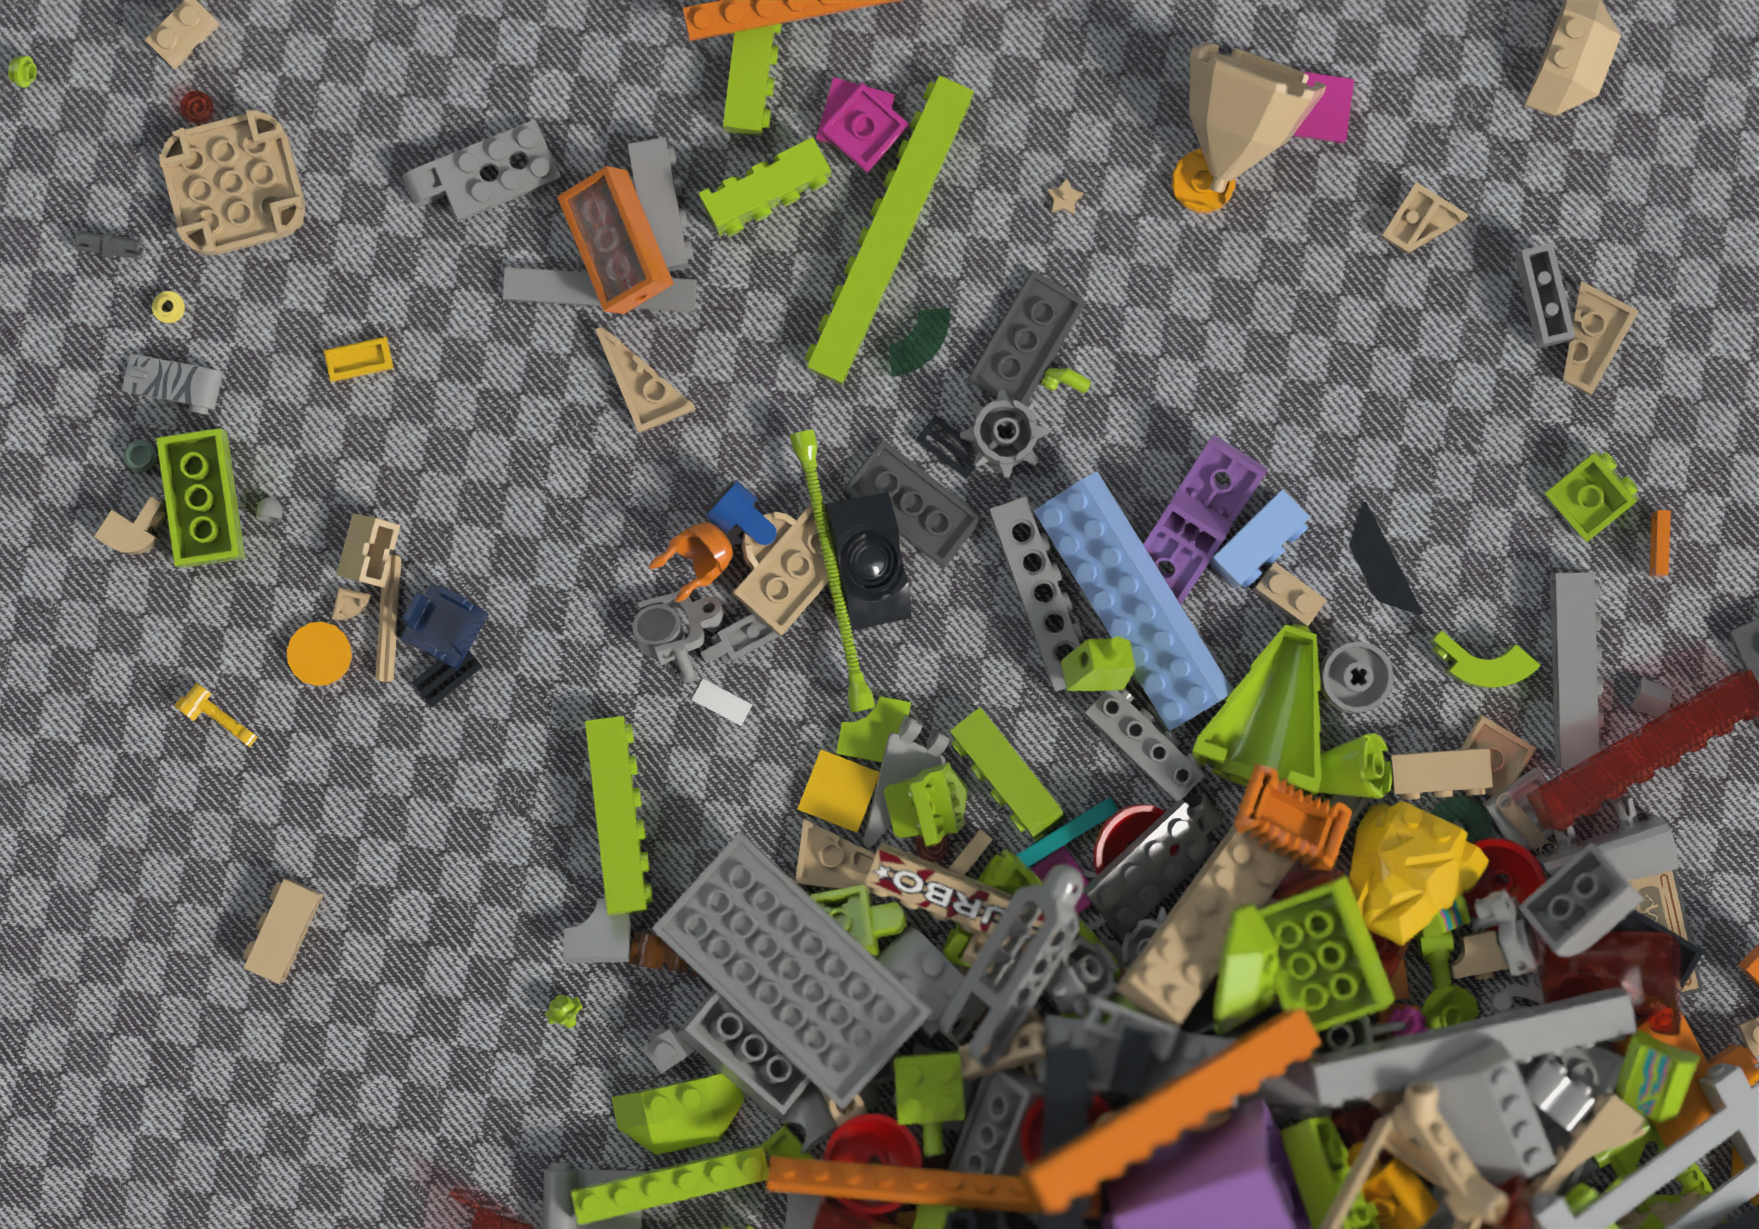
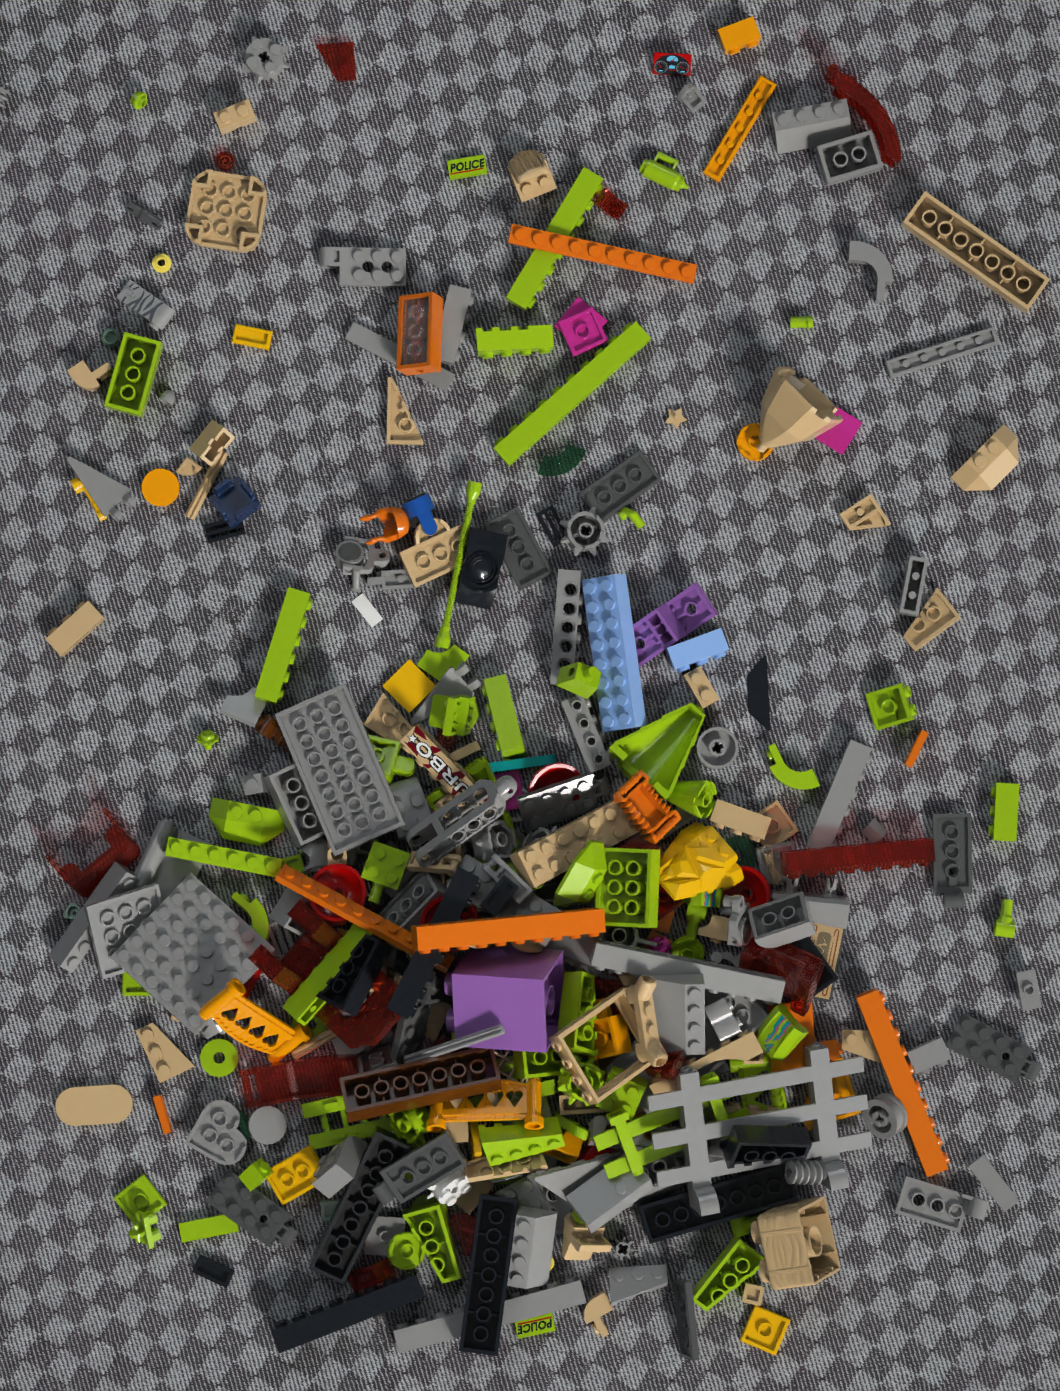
camera: 25 degrees right, 0 degrees up
(231, 696) = (102, 489): none -> light grey flag

